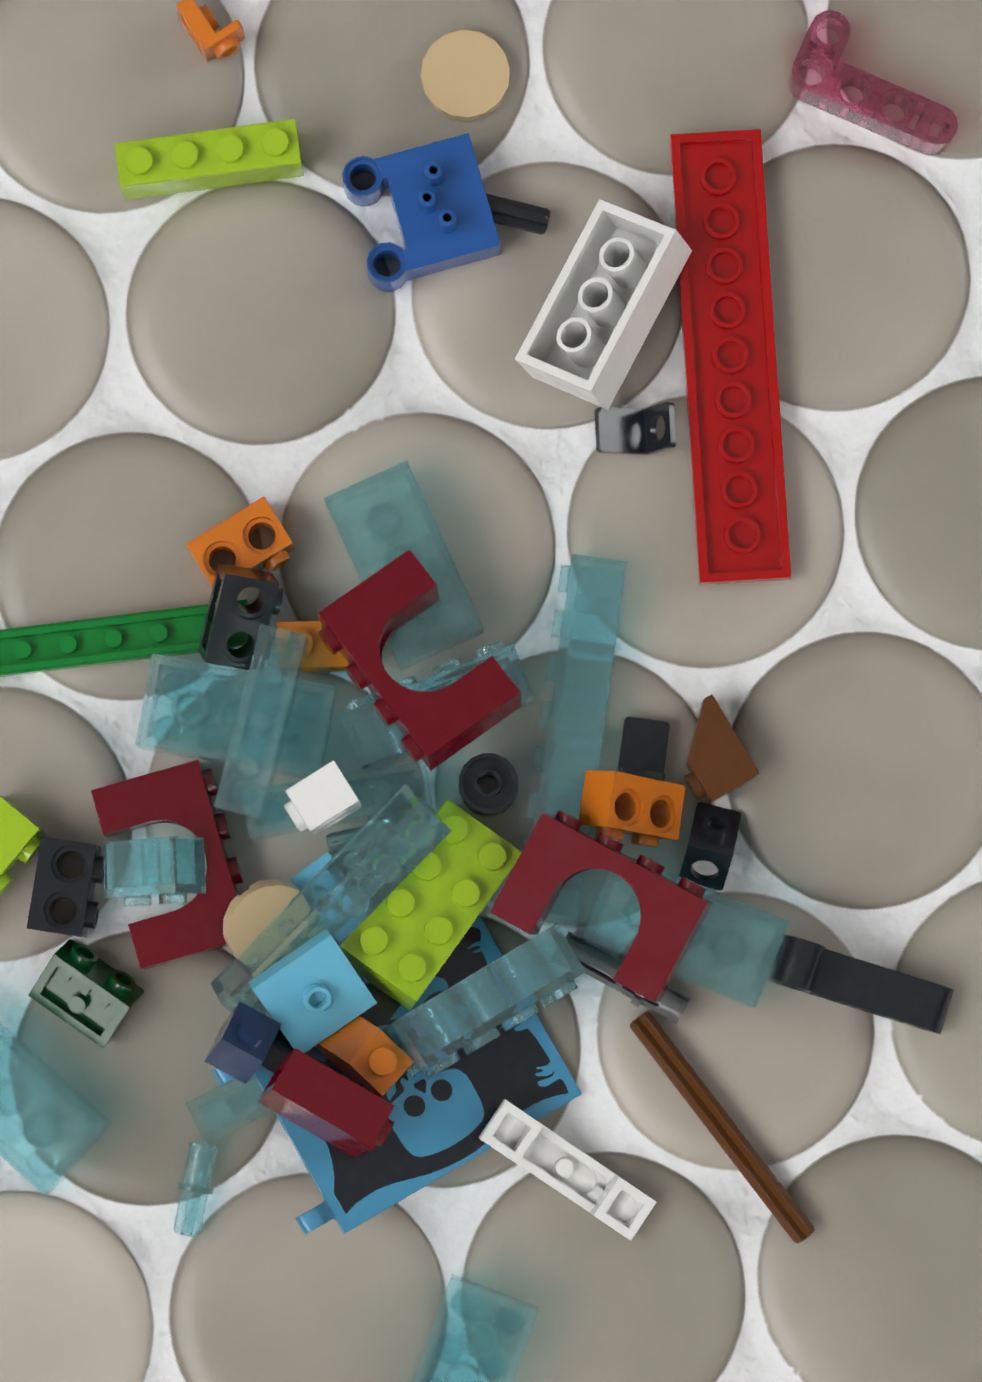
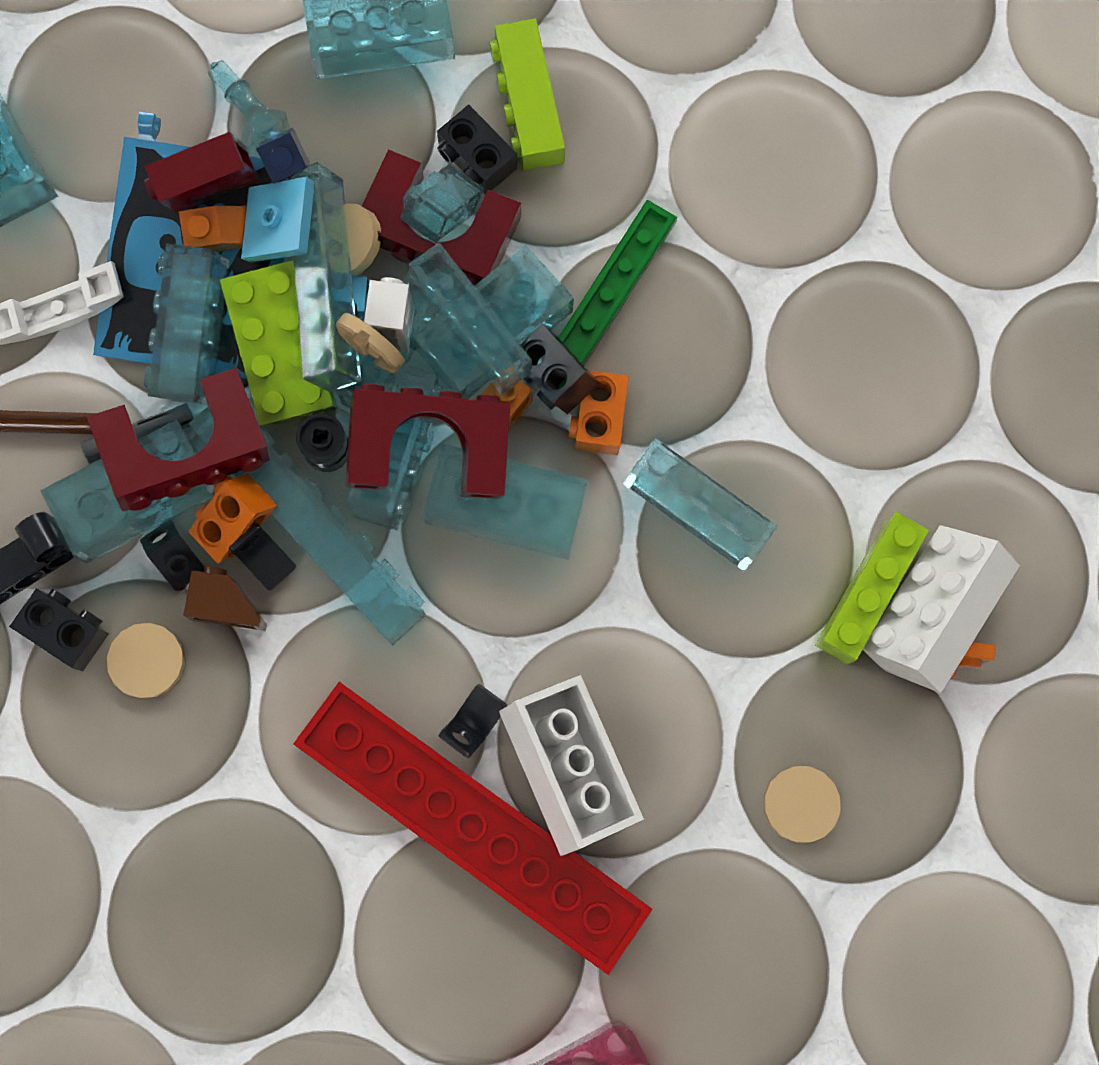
camera: 125 degrees right, 5 degrees down
(86, 992) = (404, 118): dark green bracket -> none
(180, 78) = (941, 607): none -> white brick
(259, 378) = (700, 504): none -> clear light blue brick
(369, 789) = (368, 341): none -> tan tile
(438, 208) = (723, 711): blue piece -> none
(828, 783) = (145, 660): none -> tan tile
(878, 884) = (56, 635): none -> black brick

